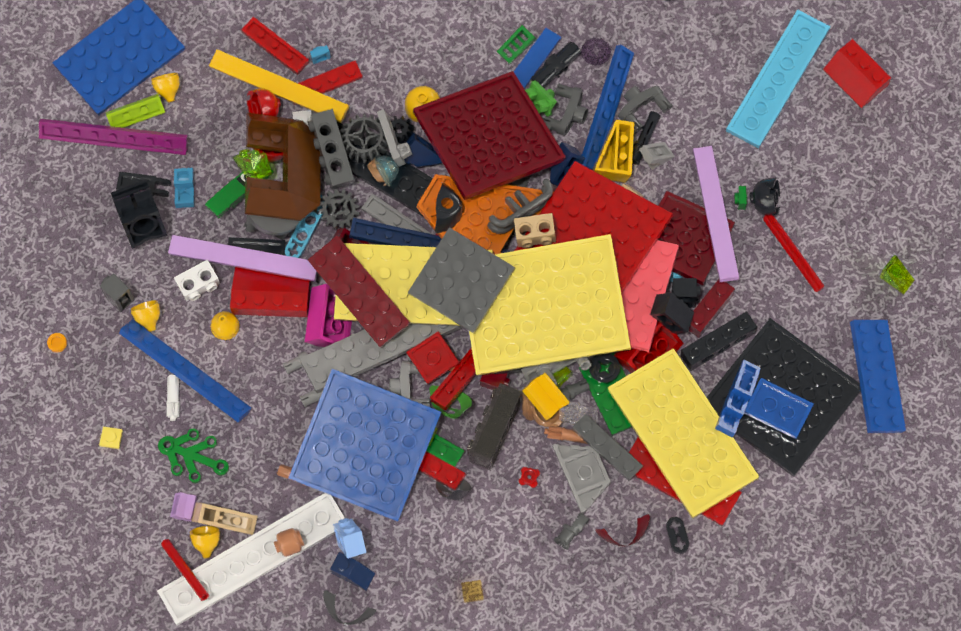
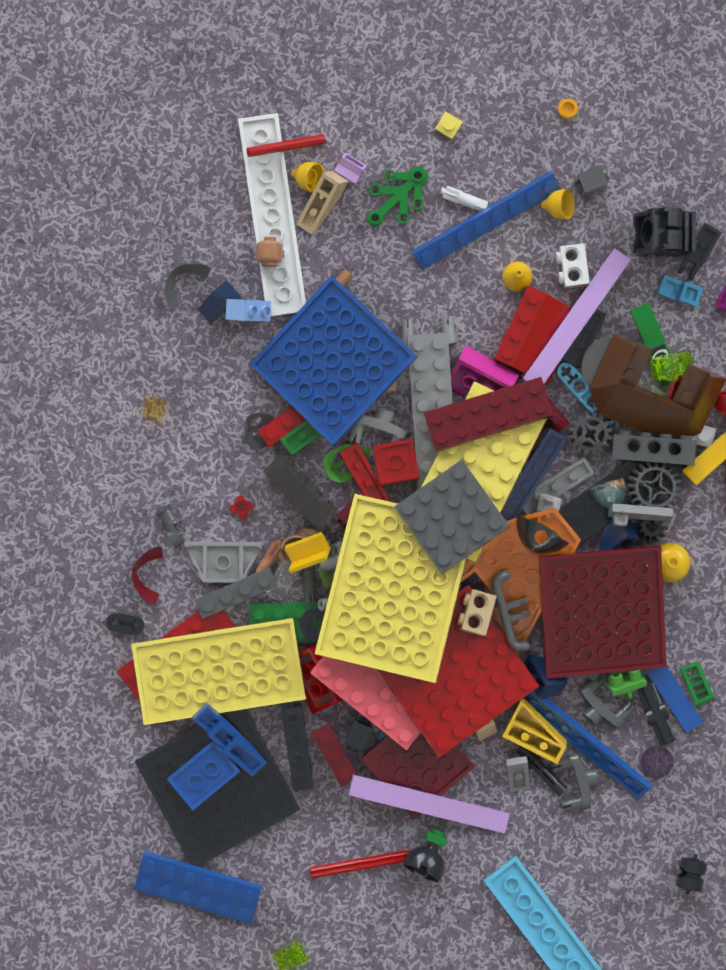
camera: 110 degrees right, 15 degrees up
(415, 218) = (547, 501): none -> white plate
(672, 312) = (338, 712): black brick -> none

